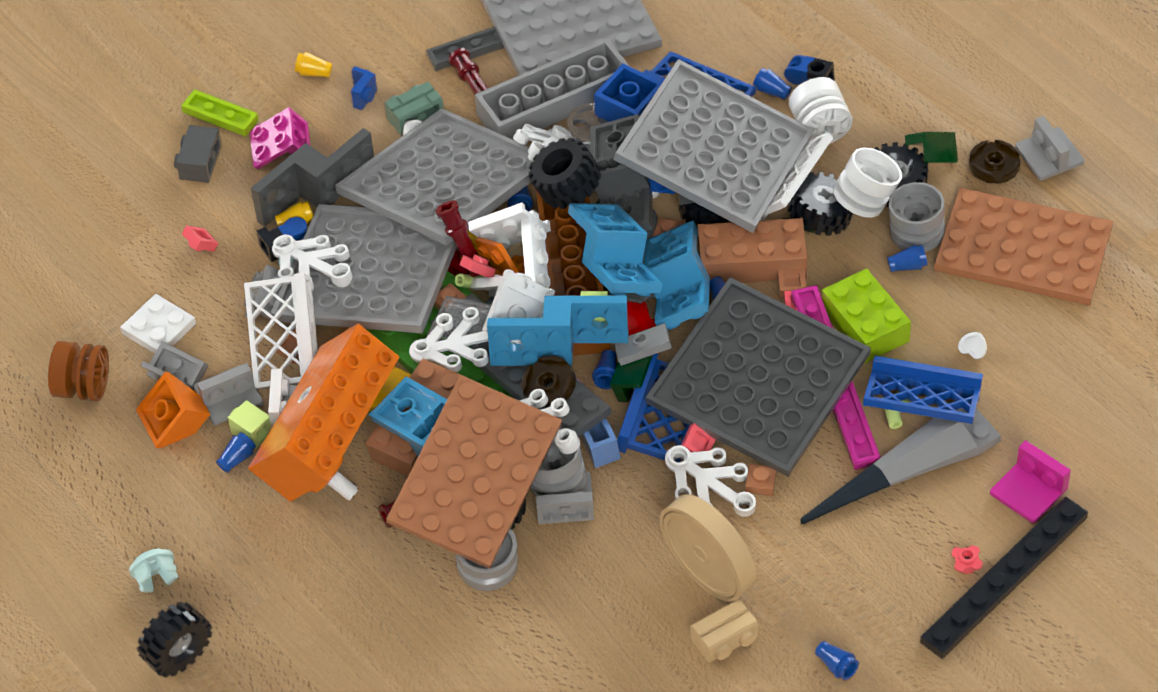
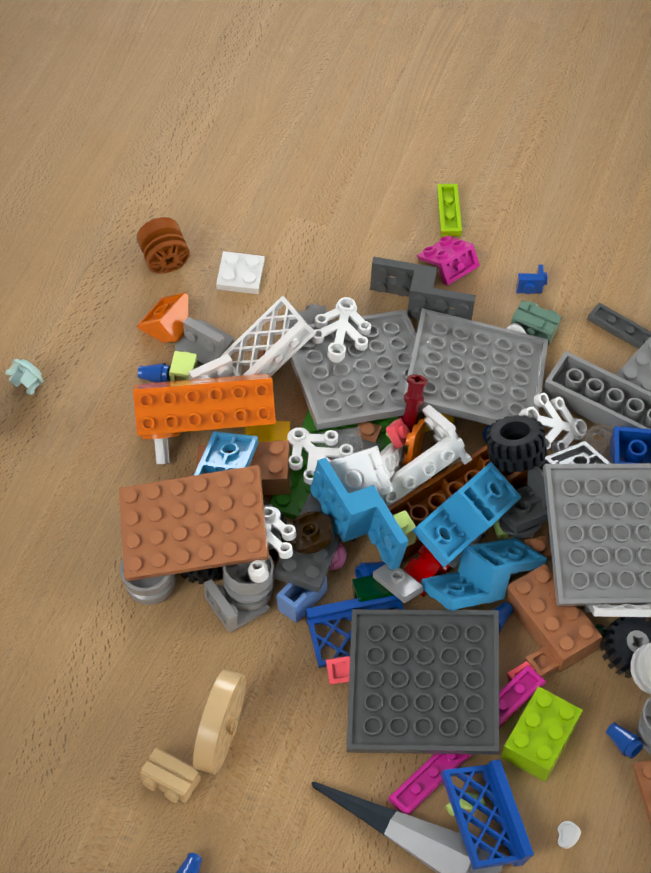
camera: 55 degrees right, 5 degrees up
(178, 363) = (205, 299): light grey bracket -> none
(198, 153) = (402, 216): dark grey brick -> none
(199, 238) = (327, 256): coral plate -> none
(294, 227) = (365, 304): leg -> none
(300, 210) = (386, 301): yellow cone -> none
(310, 65) = (530, 239): yellow cone -> none
(467, 70) = (597, 338): dark red pin -> none
(709, 477) = (309, 693): white plant -> none
(760, 480) = (334, 733): nougat plate -> none

